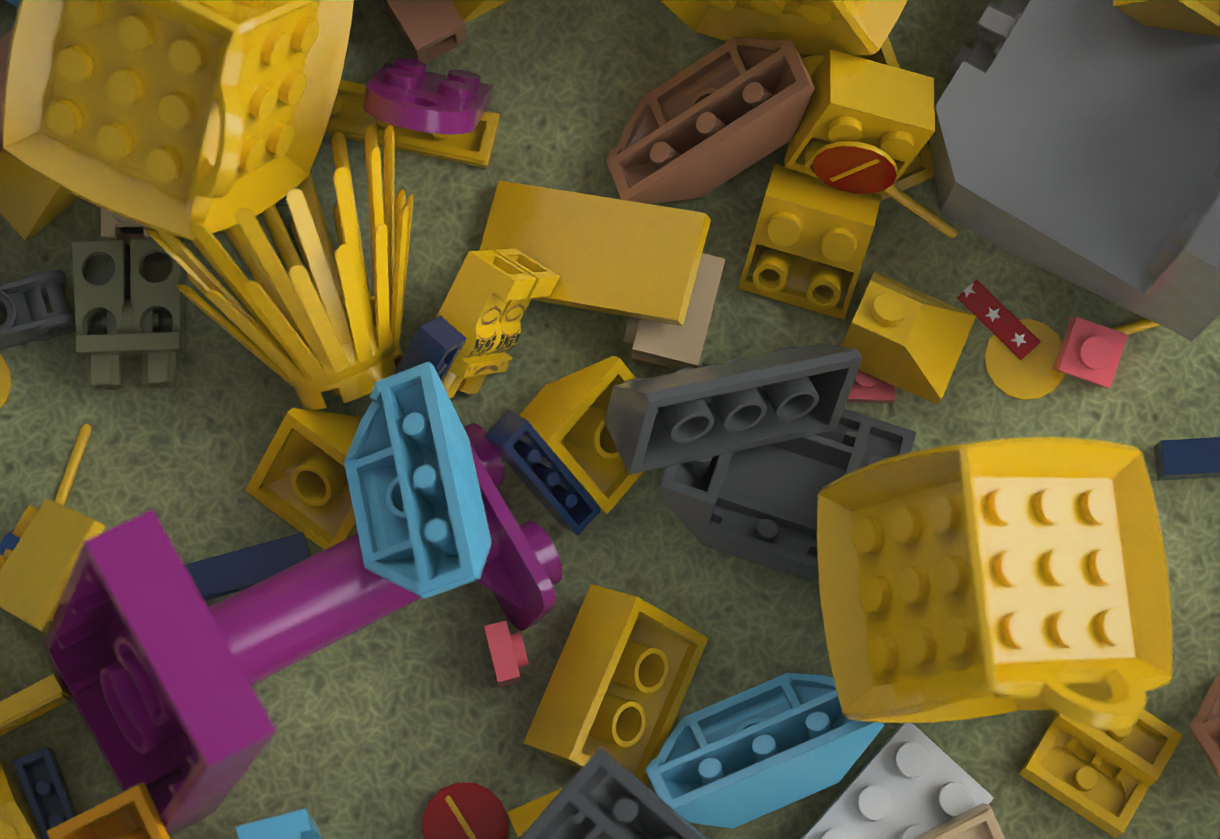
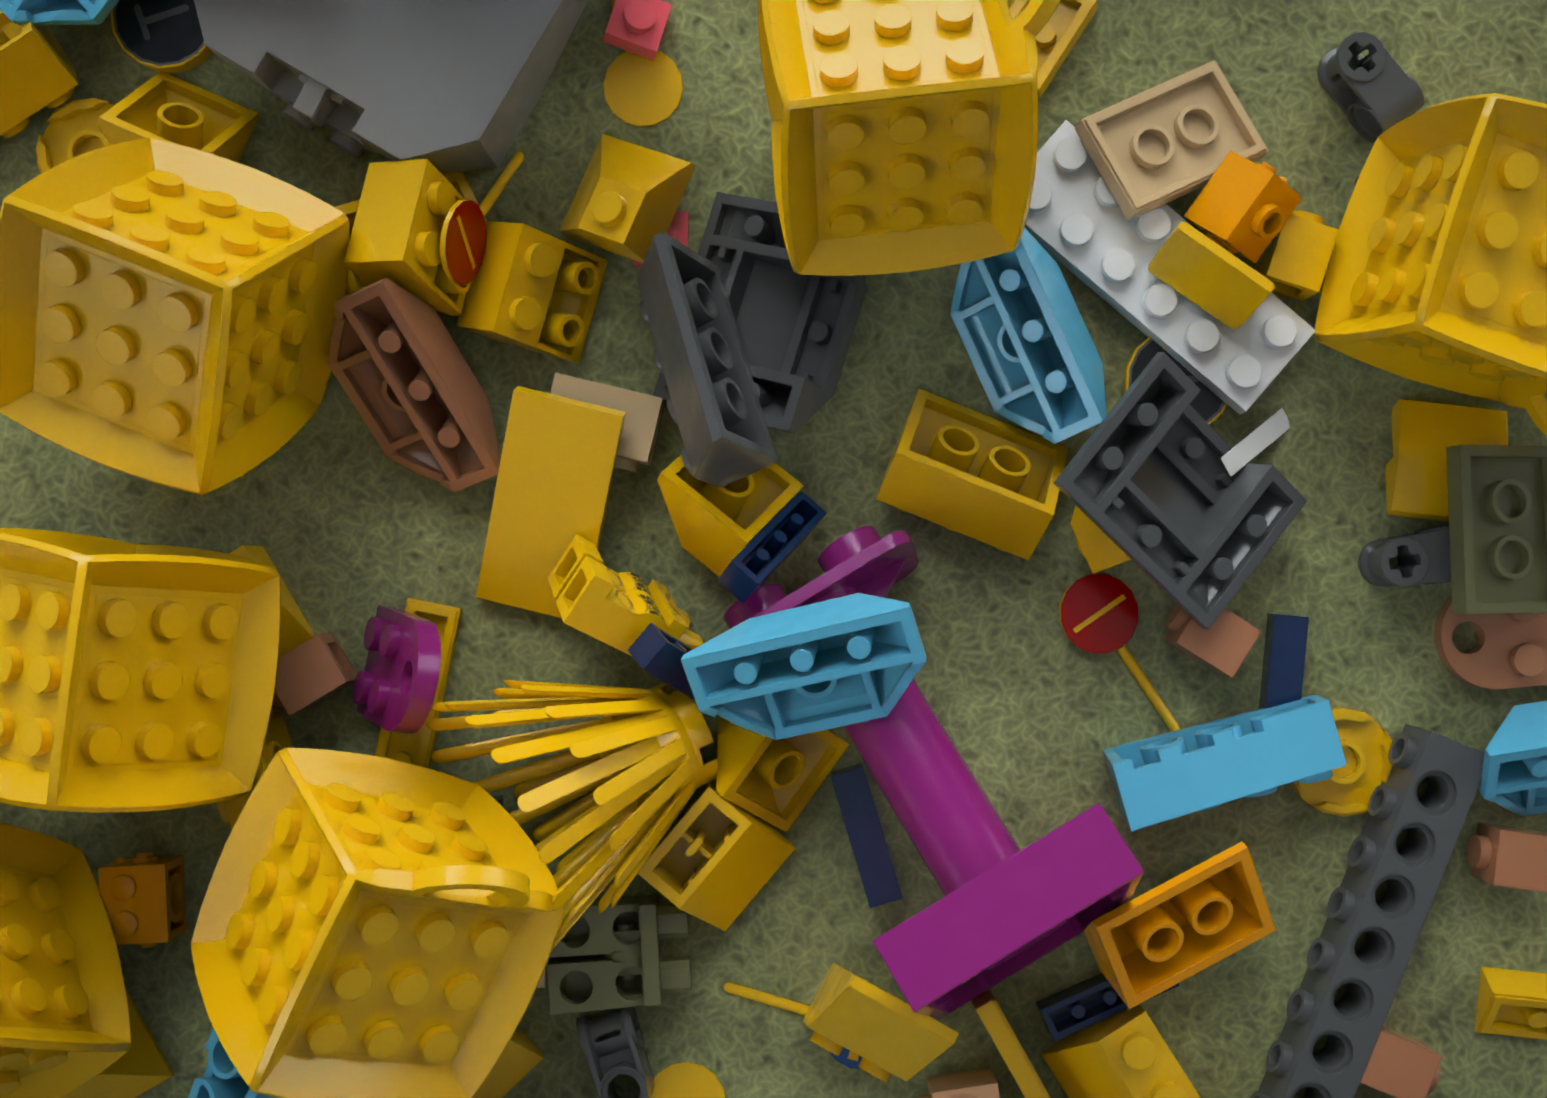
camera: 85 degrees left, 10 degrees up
(221, 412) = (715, 858): none -> yellow slope
(506, 653) = (941, 578): coral plate -> none
(998, 319) = (605, 112): red sticker -> none

